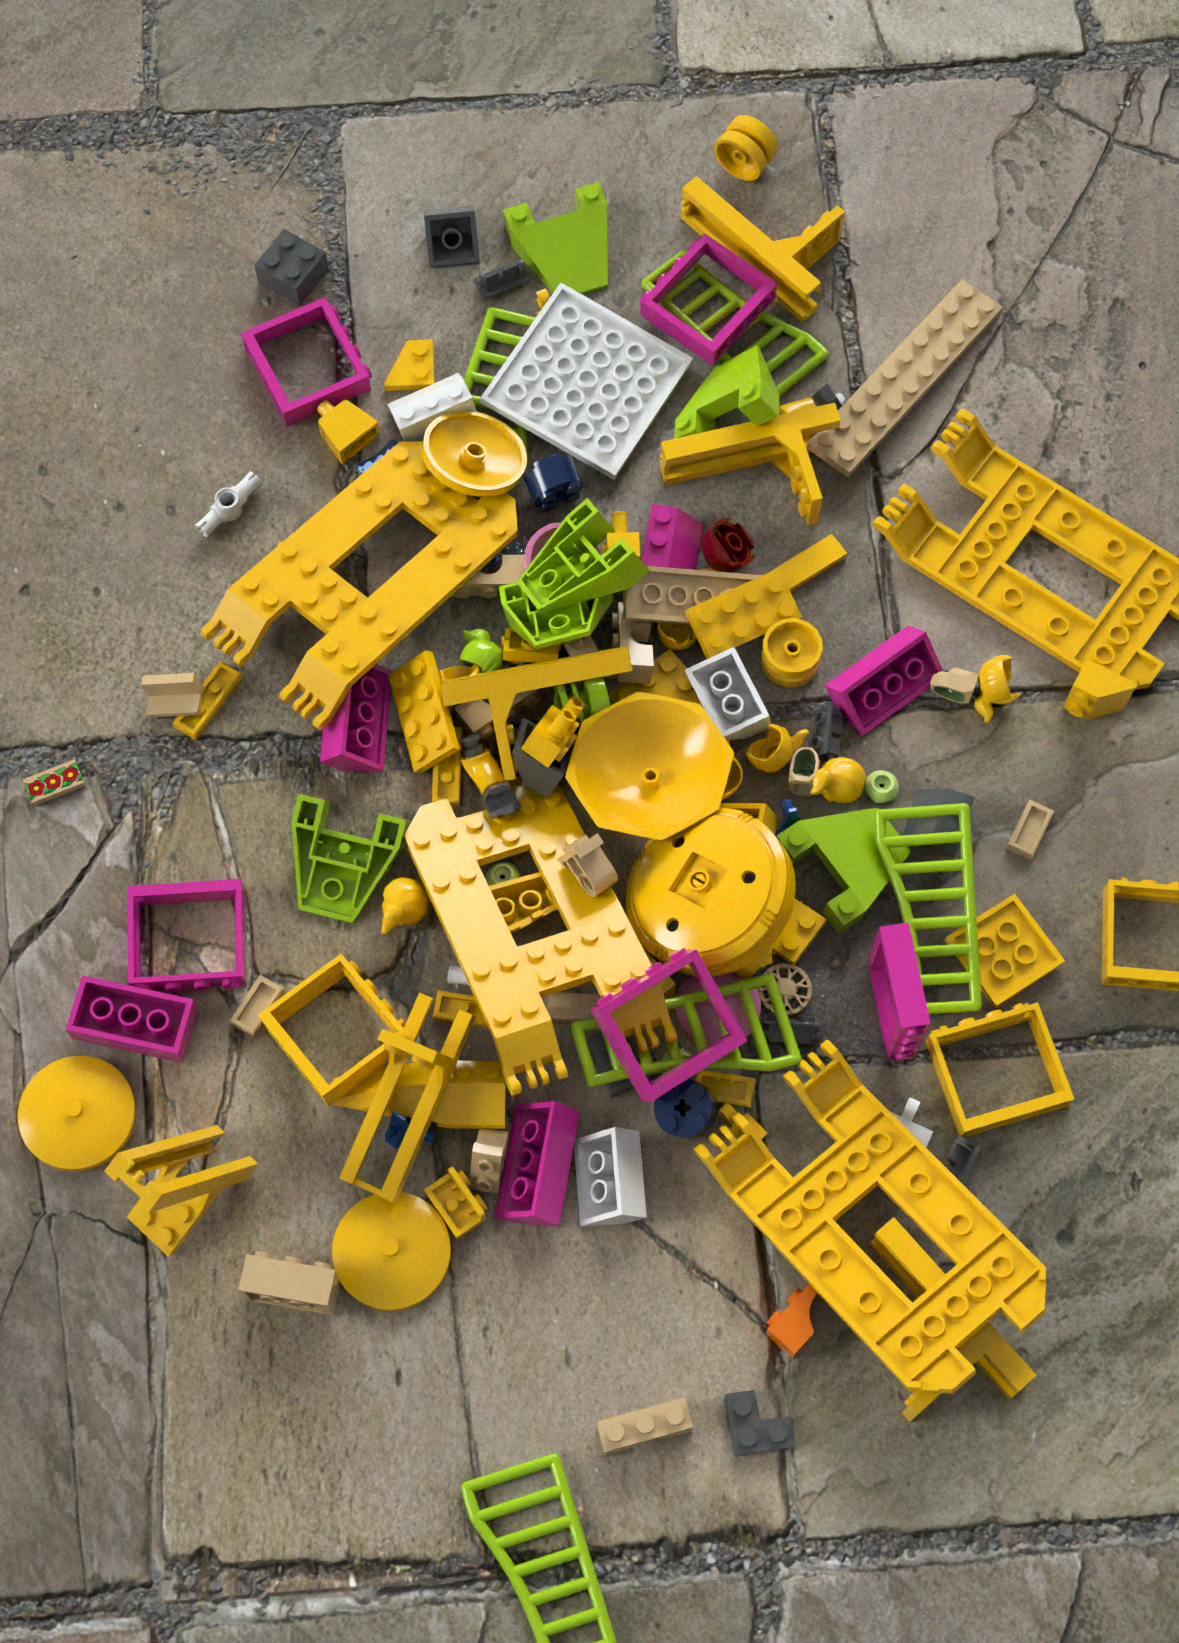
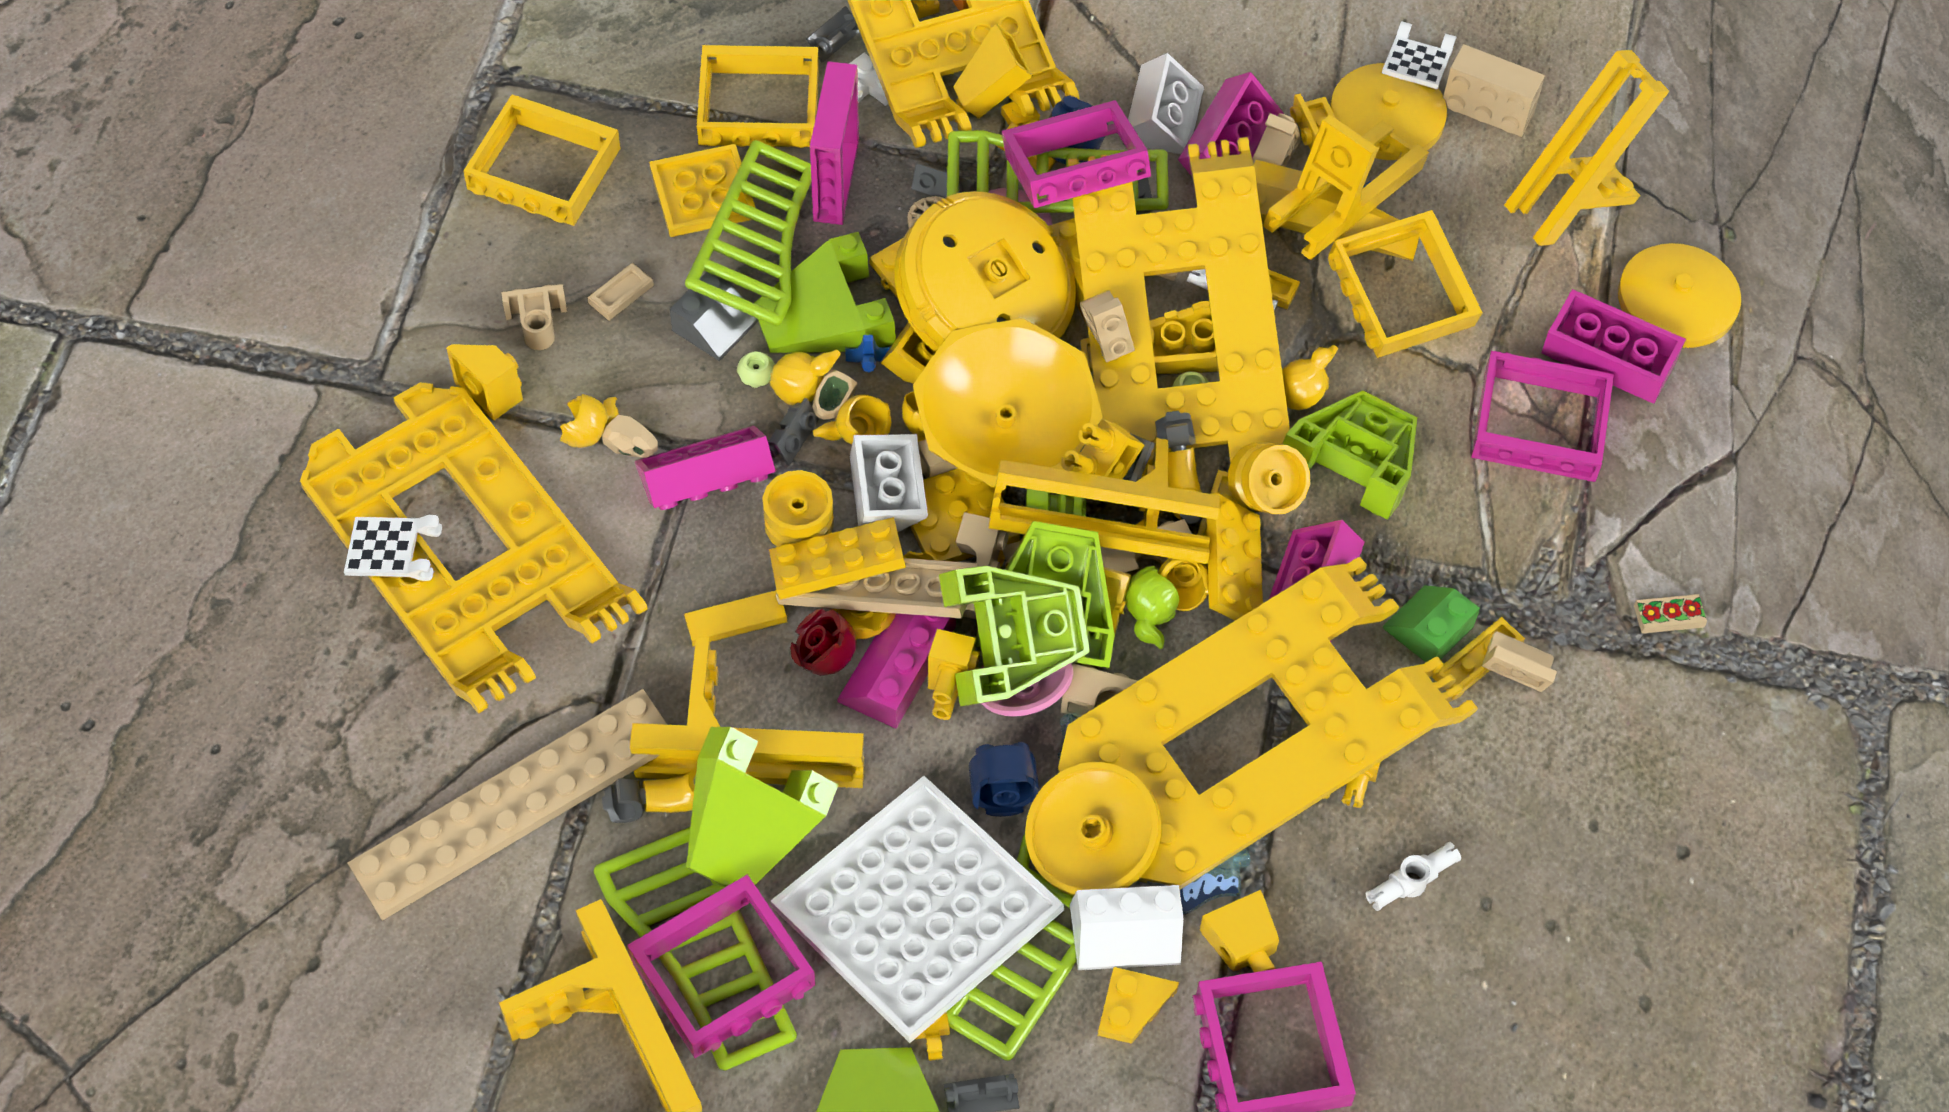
camera: 165 degrees left, 10 degrees down
(250, 712) = (1433, 621): none -> bright green slope
(259, 997) = (1479, 341): tan tile -> none
(373, 1314) = (1416, 60): none -> white flag
(412, 783) = (1269, 478): none -> yellow wheel
(784, 1148) = (991, 73): none -> yellow slope
(1091, 780) = (535, 312): none -> tan pin
(1100, 531) = (387, 547): none -> white flag

